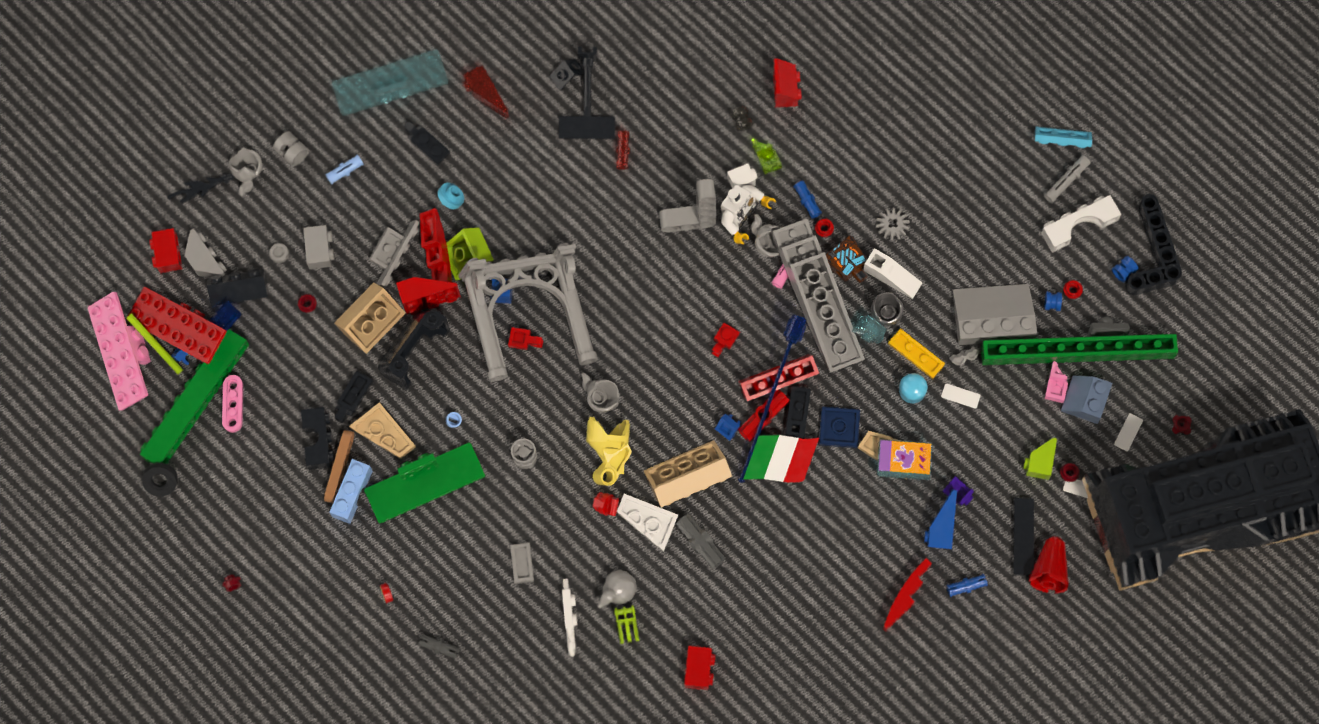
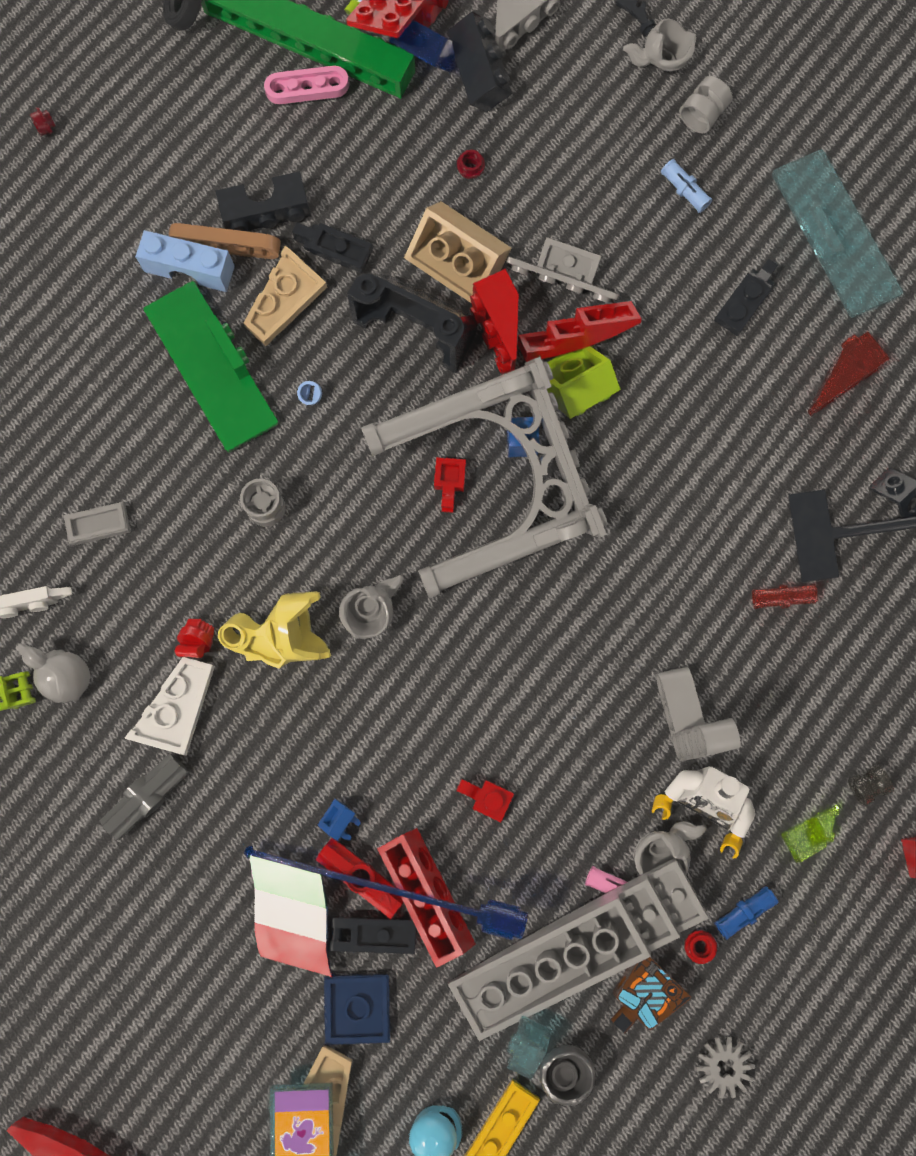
camera: 80 degrees right, 5 degrees up
(279, 253) = (543, 116): light grey tile -> none
(318, 247) = (557, 162): light grey brick -> none
(386, 592) = (36, 332): red tile -> none
(450, 195) = (666, 341): medium azure plate -> none
(688, 473) = (254, 762): tan slope -> none
(742, 176) = (768, 797): white brick -> none
(891, 273) = (633, 1077): white slope -> none

